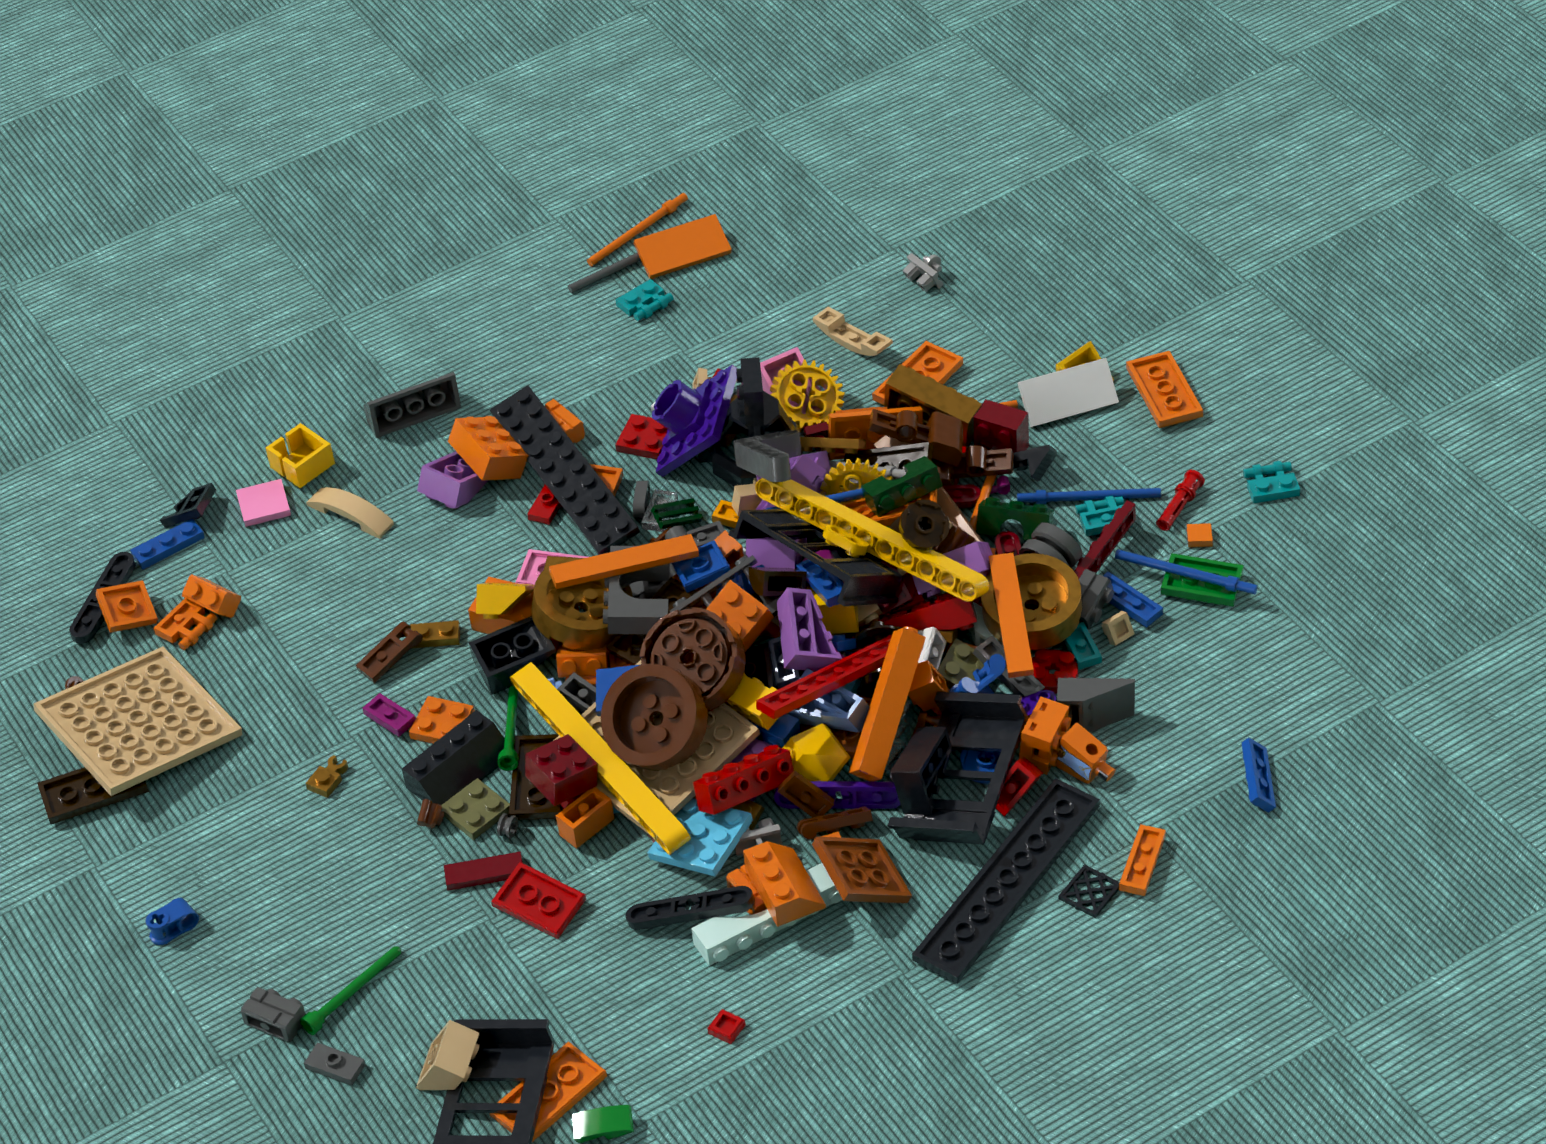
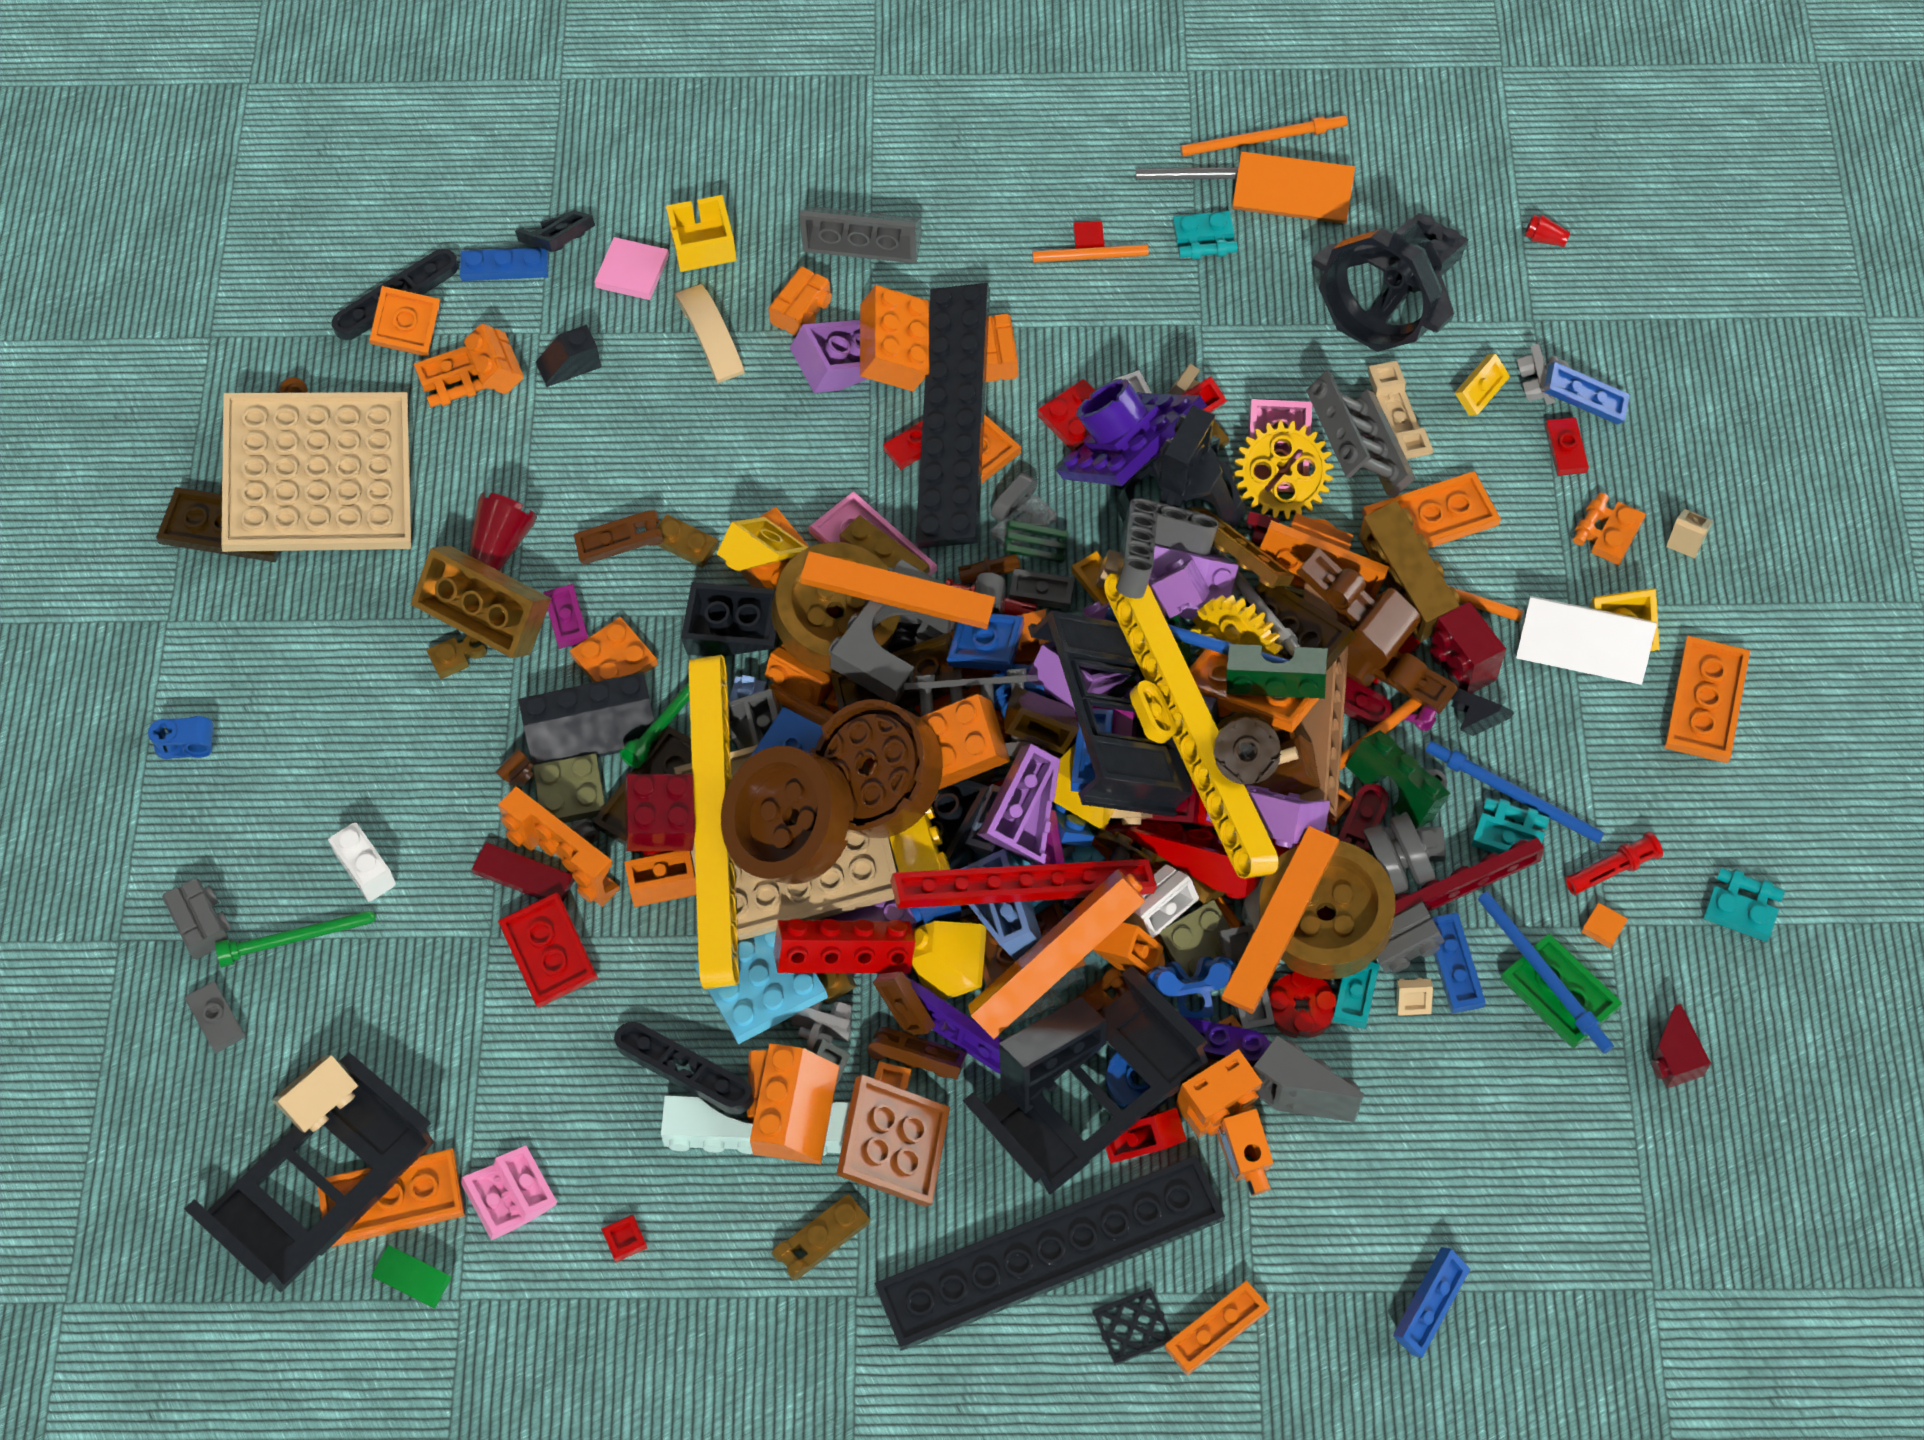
camera: 30 degrees right, 15 degrees up
(264, 570) = (569, 356): none -> black slope
(301, 688) = (498, 529): none -> dark red cone
(326, 729) = (480, 601): none -> pearl gold brick
(366, 919) = (362, 862): none -> white brick
(401, 463) = (800, 301): none -> orange brick
(479, 830) = (534, 825): none -> orange piece
(567, 337) = (1088, 234): none -> red tile
(577, 345) = (1090, 253): none -> orange bar
(627, 1045) = (508, 1192): none -> bright pink slope
(795, 248) = (1411, 262): none -> black plate
(841, 349) = (1360, 434): none -> dark grey fence
(855, 952) = (821, 1236): none -> pearl gold plate
(862, 196) = (1545, 231): none -> red cone
(892, 294) = (1482, 384): none -> yellow plate
(961, 265) = (1586, 393): none -> plate
(970, 303) = (1566, 446): none -> red plate
(1038, 329) = (1618, 532): none -> orange plate
(1083, 311) = (1689, 533): none -> tan slope
(1296, 572) = (1679, 1052): none -> dark red slope

